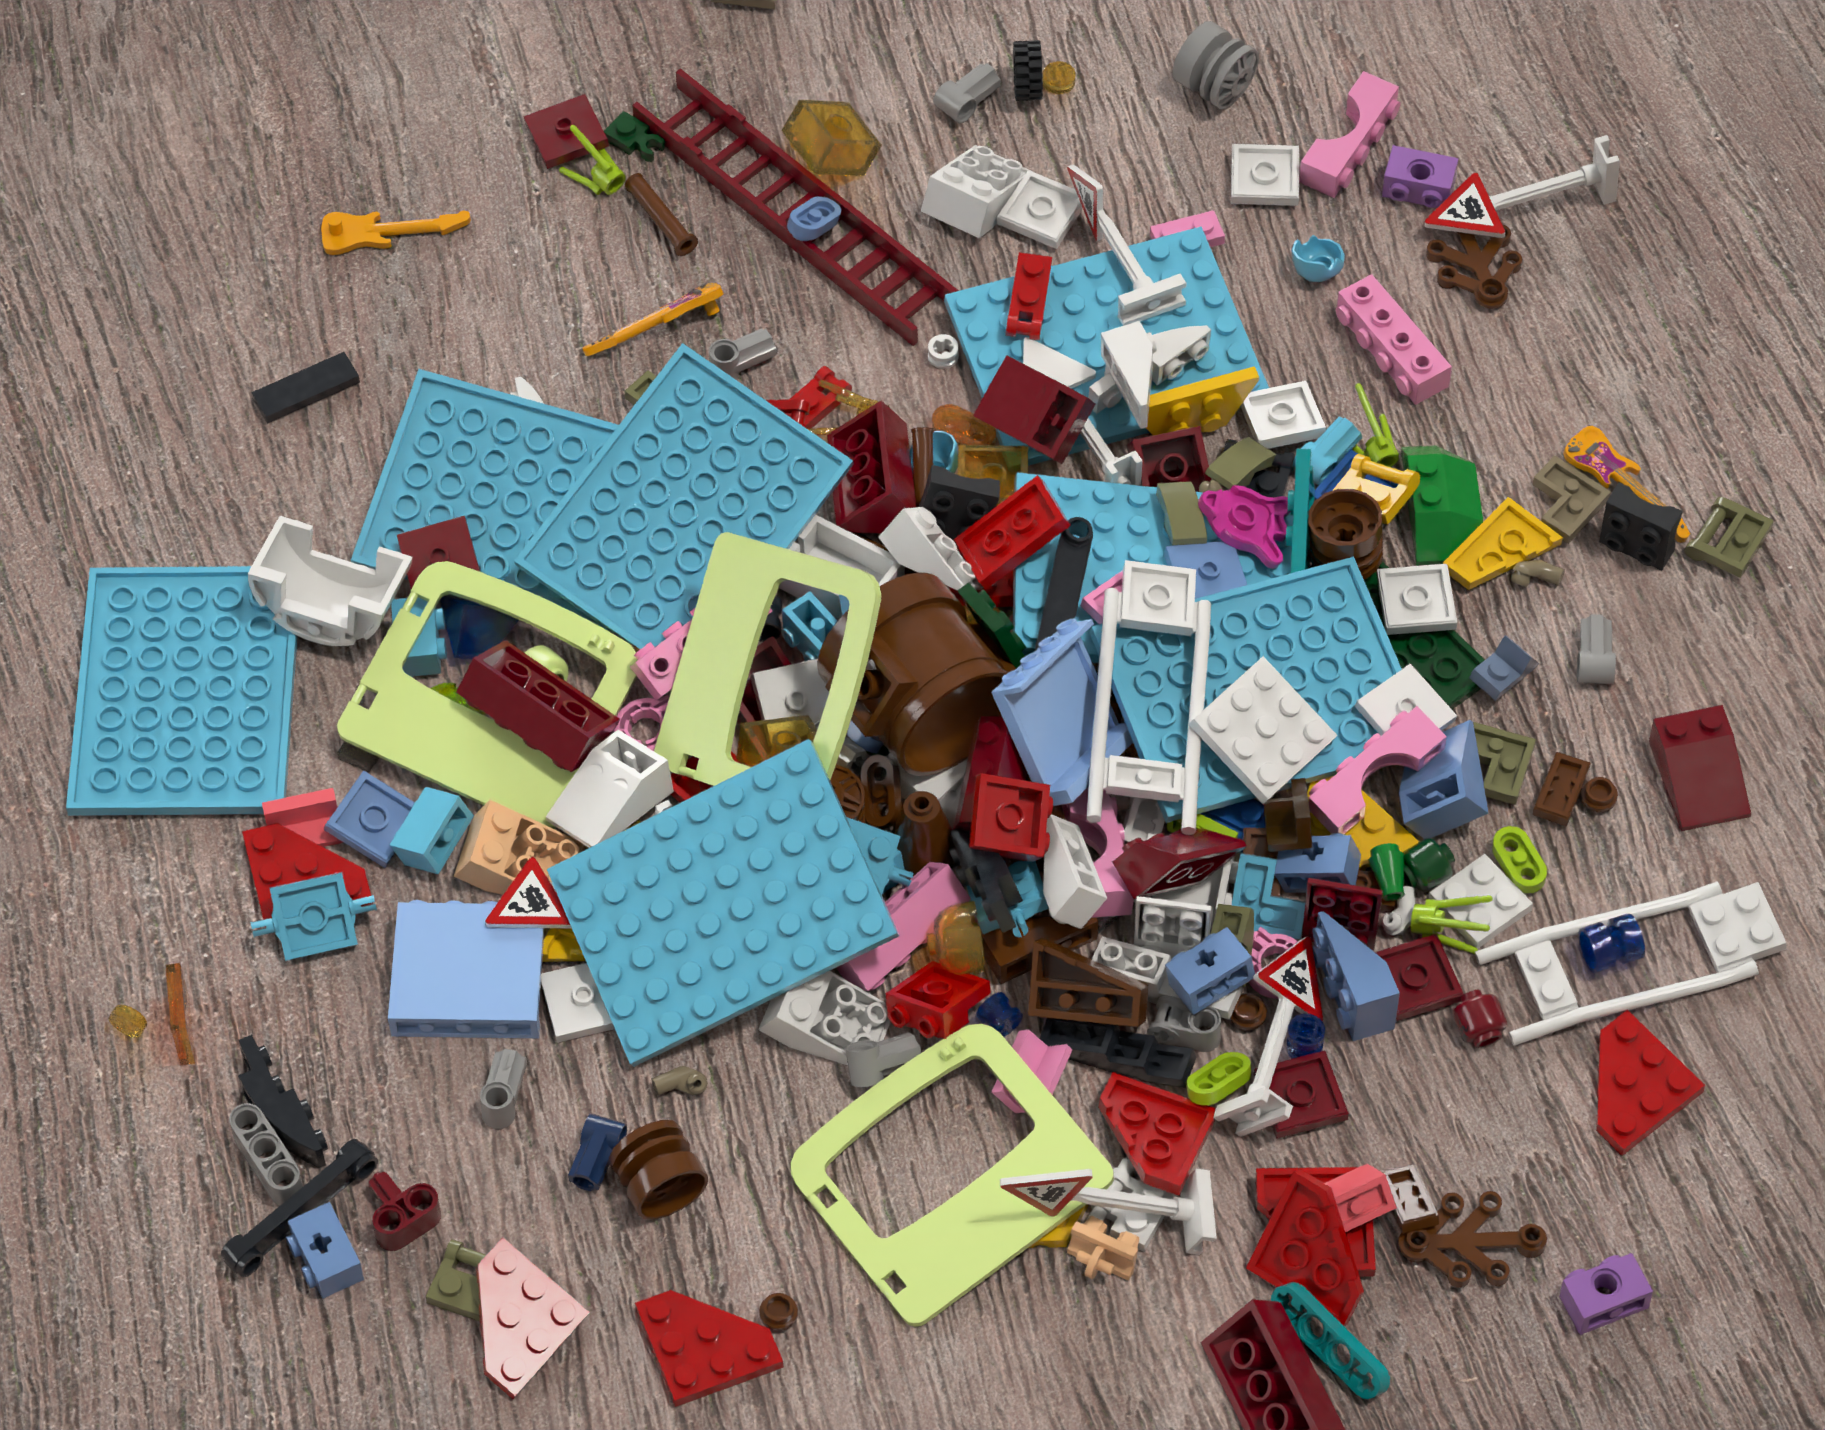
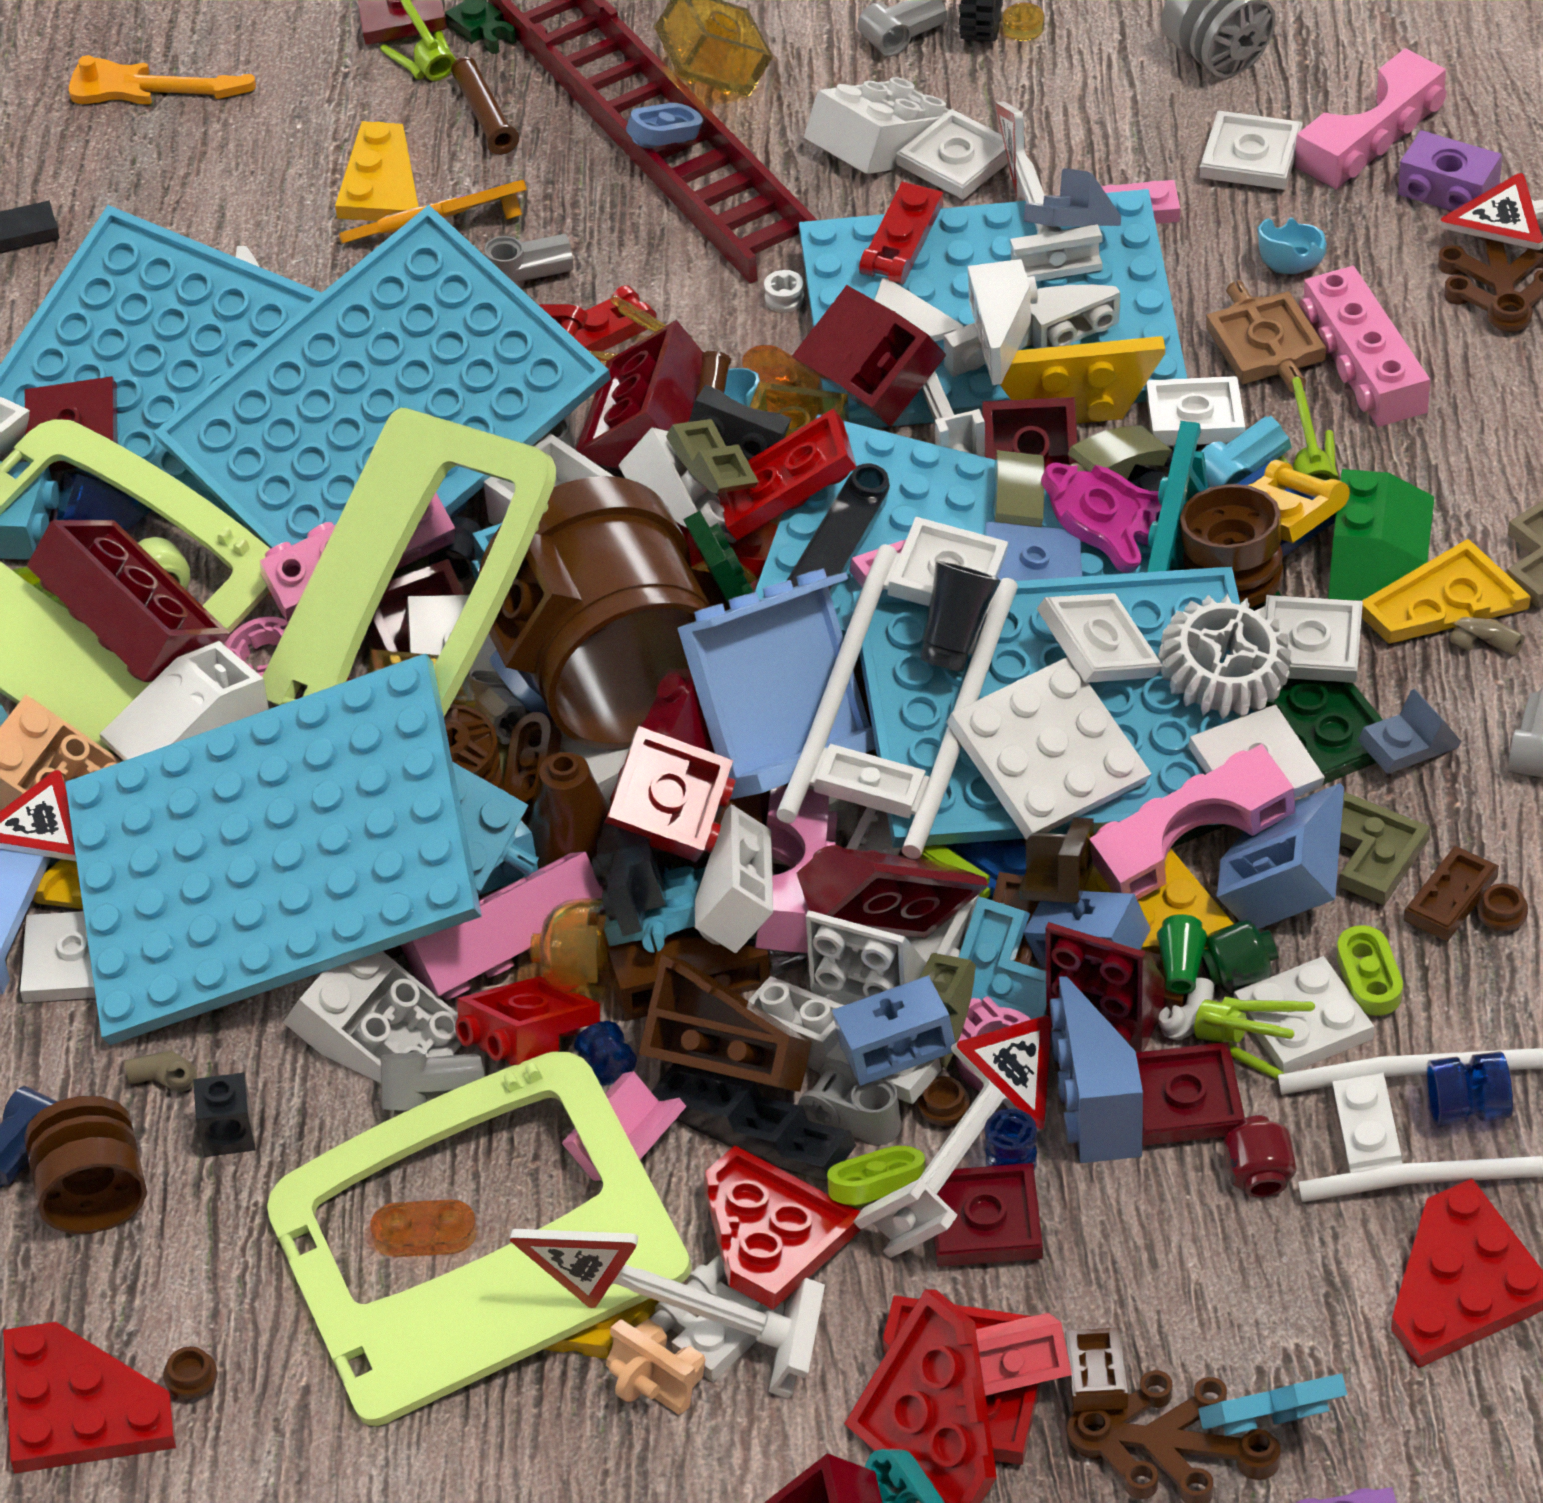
camera: 15 degrees right, 10 degrees down
(597, 290) = (377, 175): none -> yellow wing
(741, 1110) = (224, 1114): none -> black brick
(909, 1173) = (422, 1228): none -> clear orange plate
(949, 526) = (709, 459): none -> olive slope
(1161, 260) = (1079, 204): none -> sand blue slope
(1178, 638) = (956, 614): none -> black plant
(1279, 635) = (1099, 637): none -> white plate
(1317, 341) = (1265, 336): none -> medium nougat plate
(1386, 628) = (1246, 677): none -> white gear
(1539, 1203) = (1283, 1404): none -> medium azure plate

